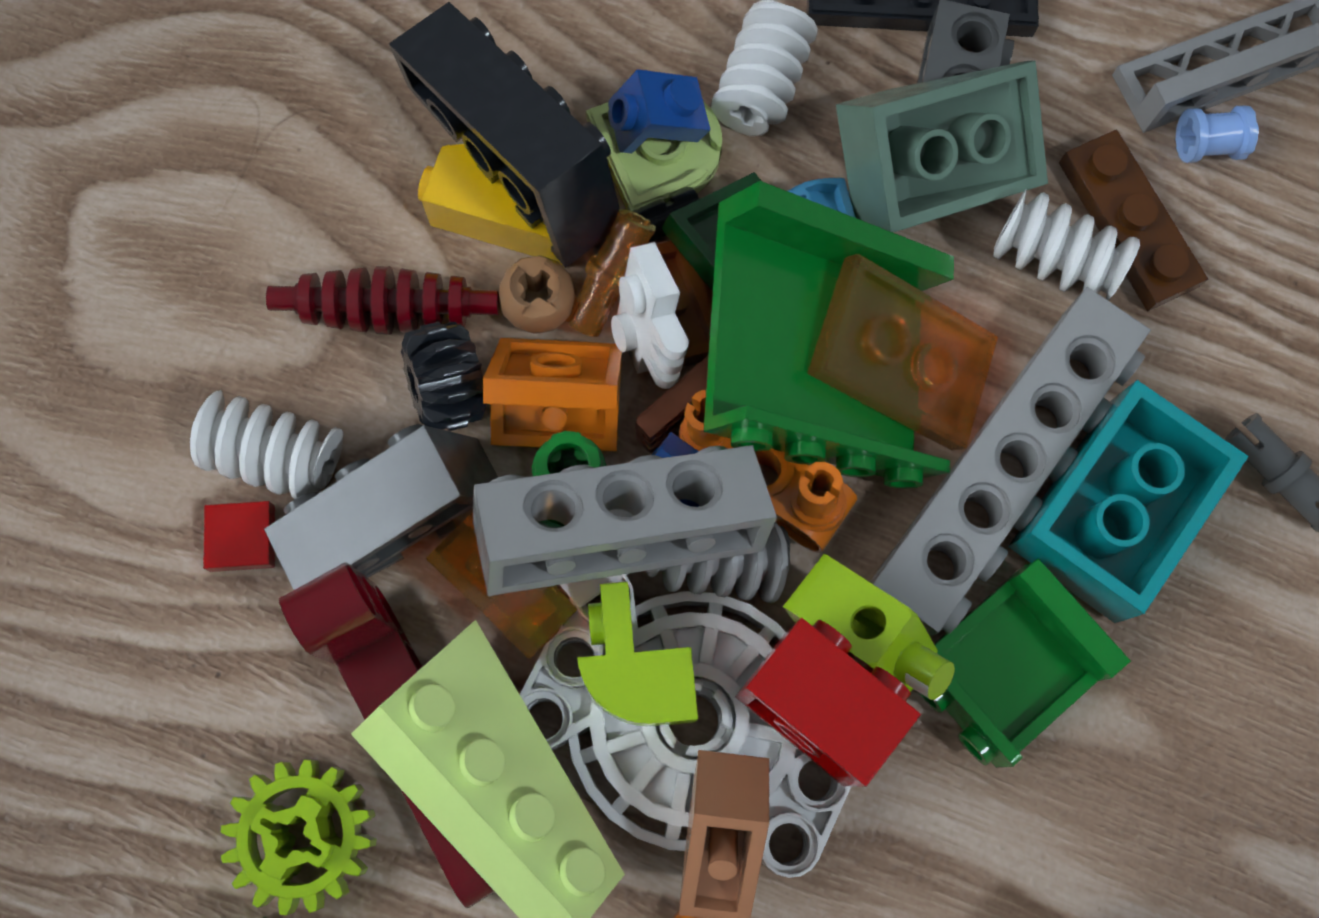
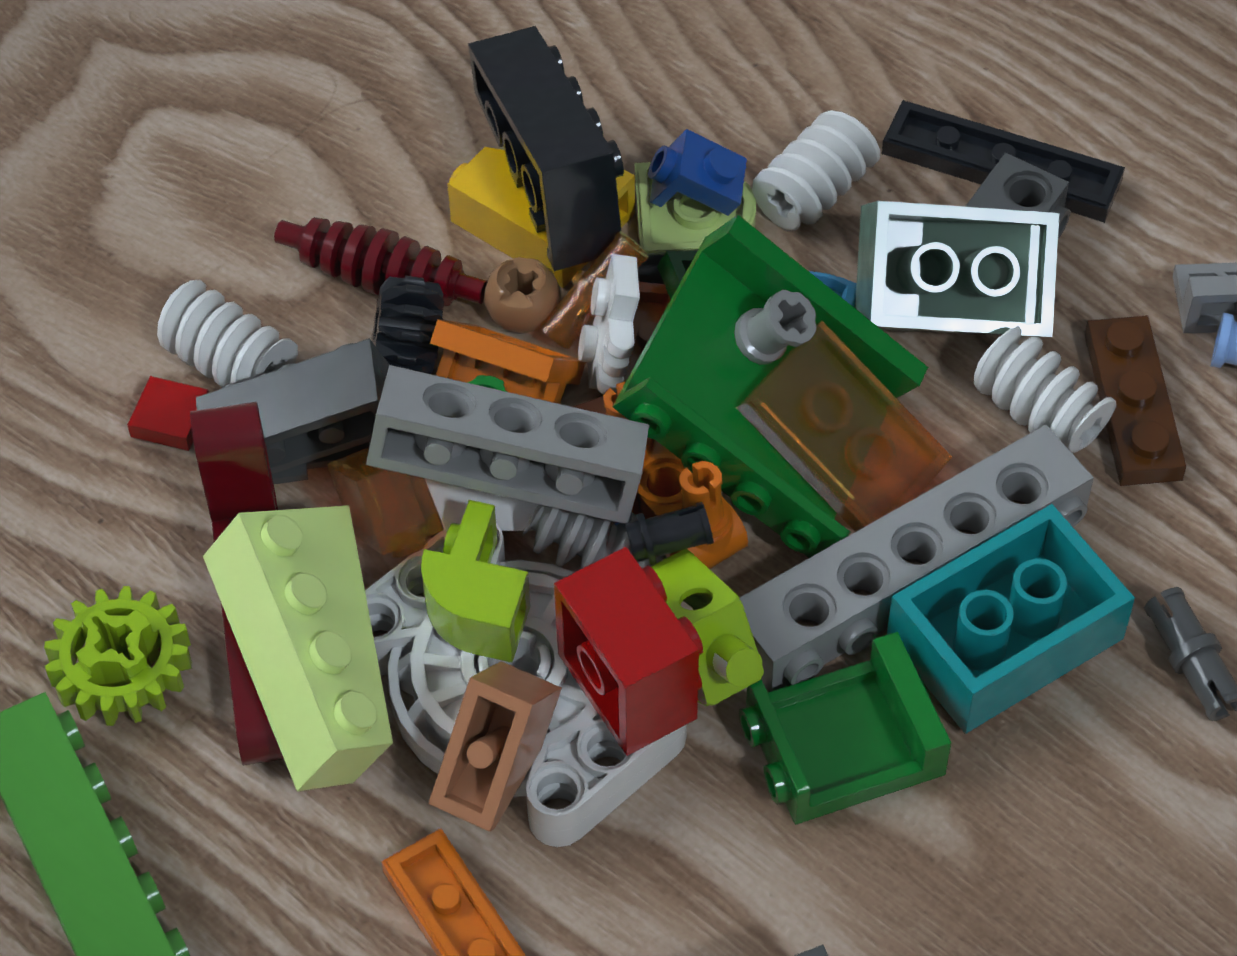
camera: 25 degrees right, 20 degrees down
(807, 548) = (668, 532): none -> black pin
(831, 276) = (767, 331): none -> light grey bush

